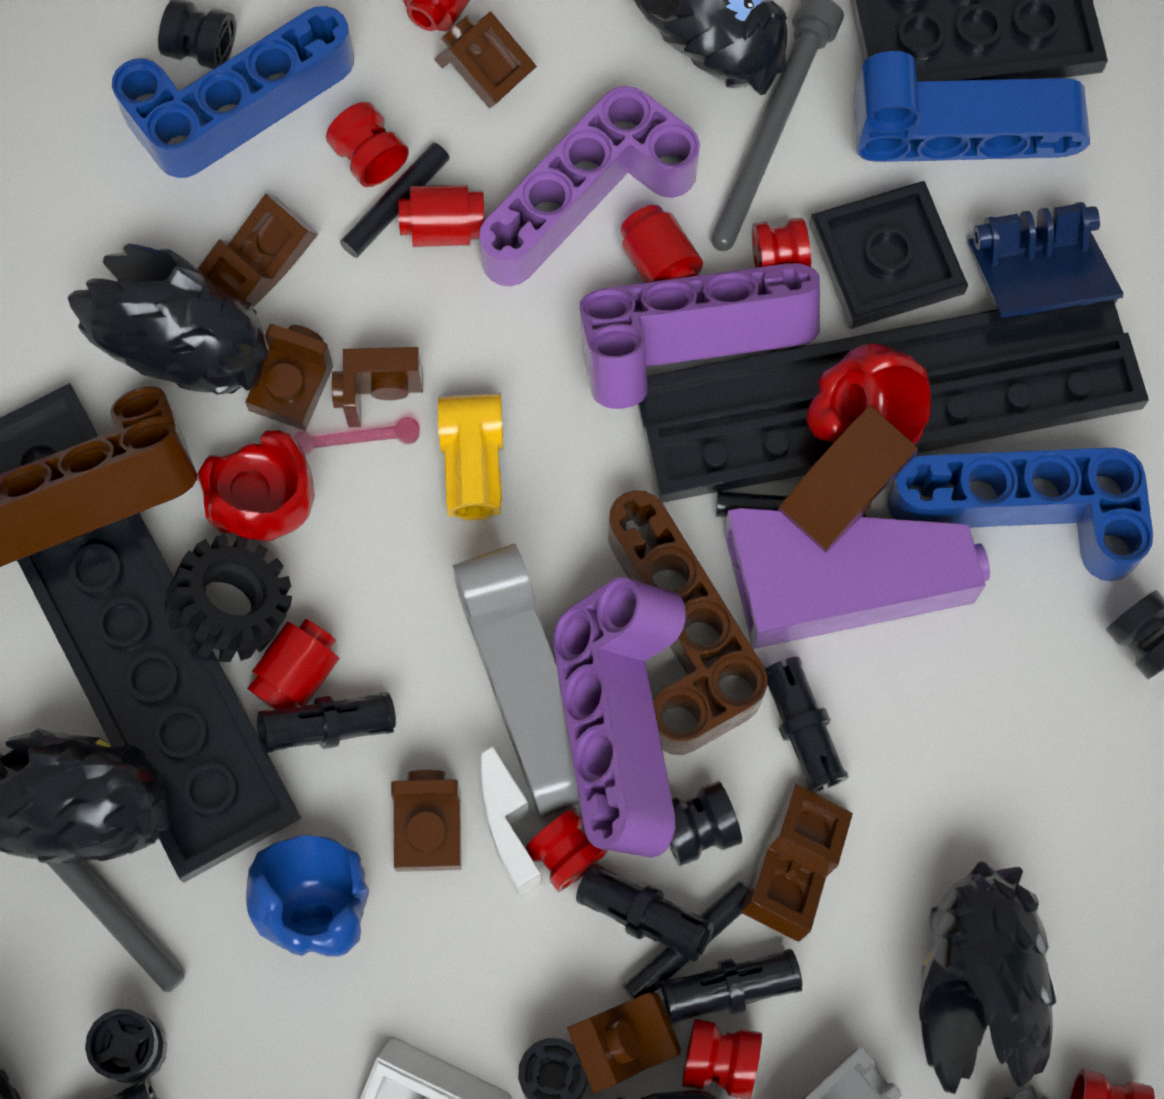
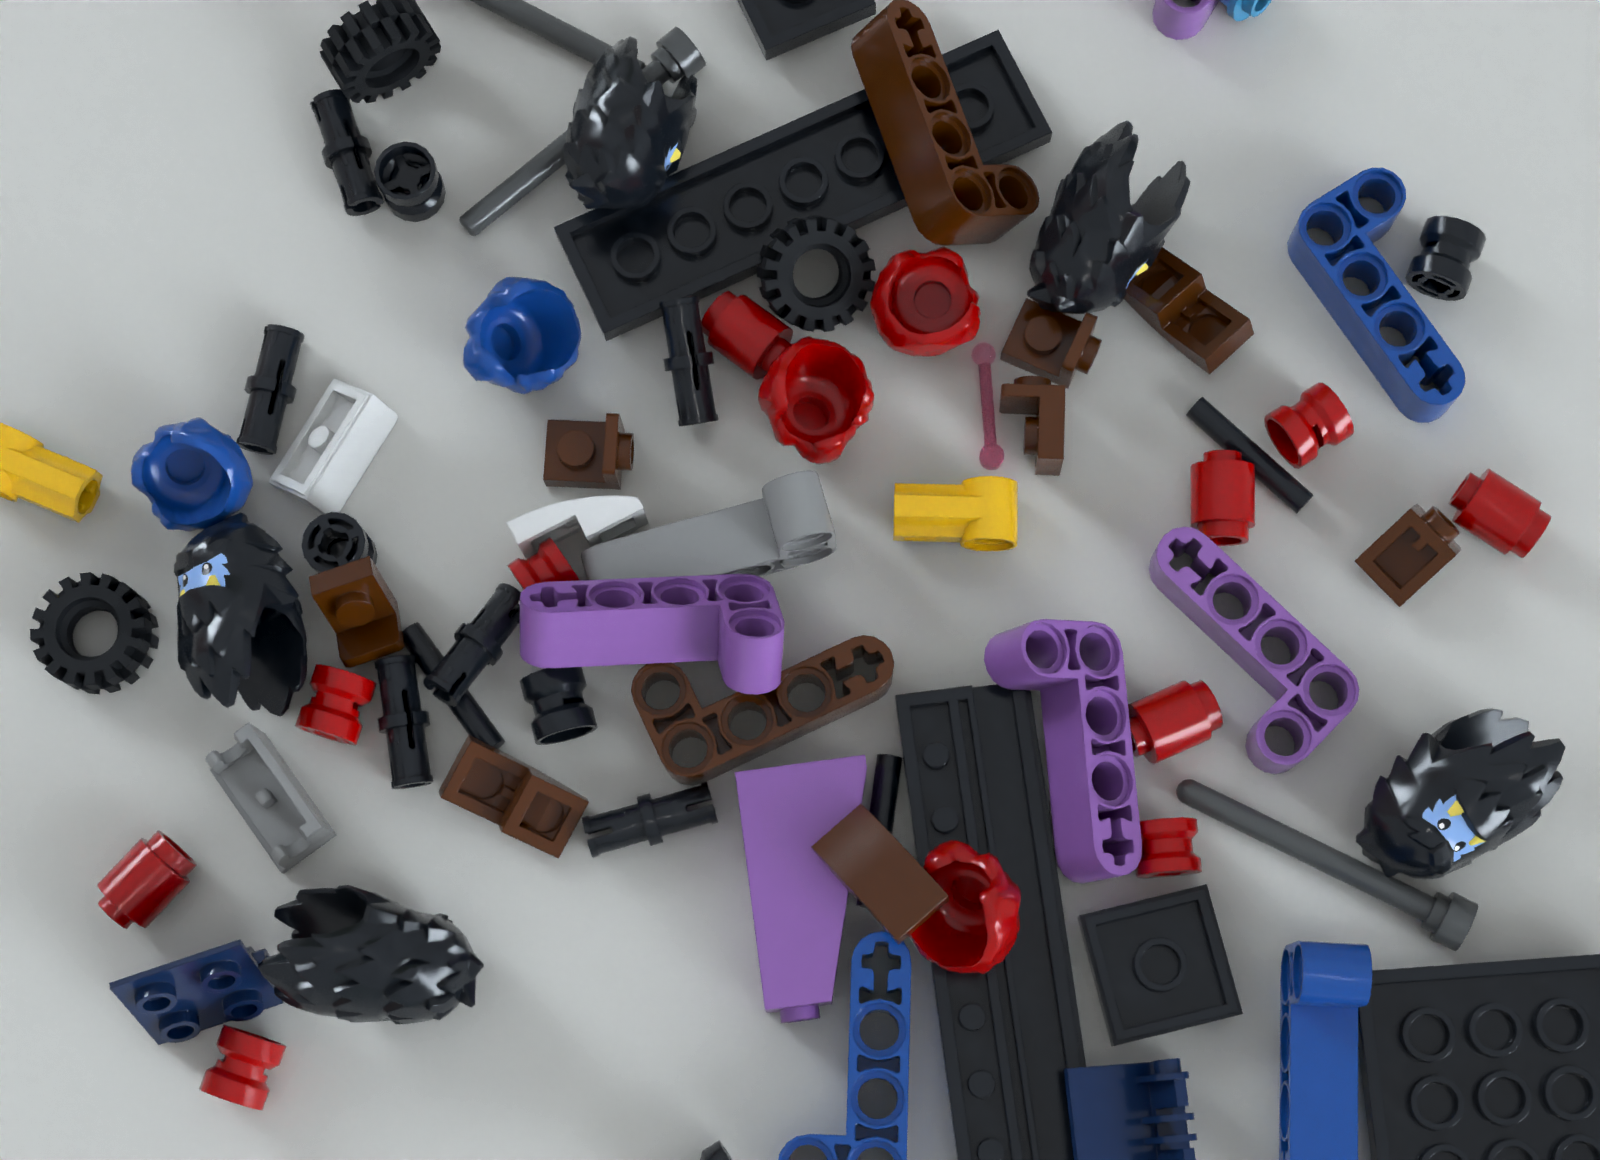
camera: 100 degrees right, 5 degrees up
(362, 586) = (816, 398): none -> red hair

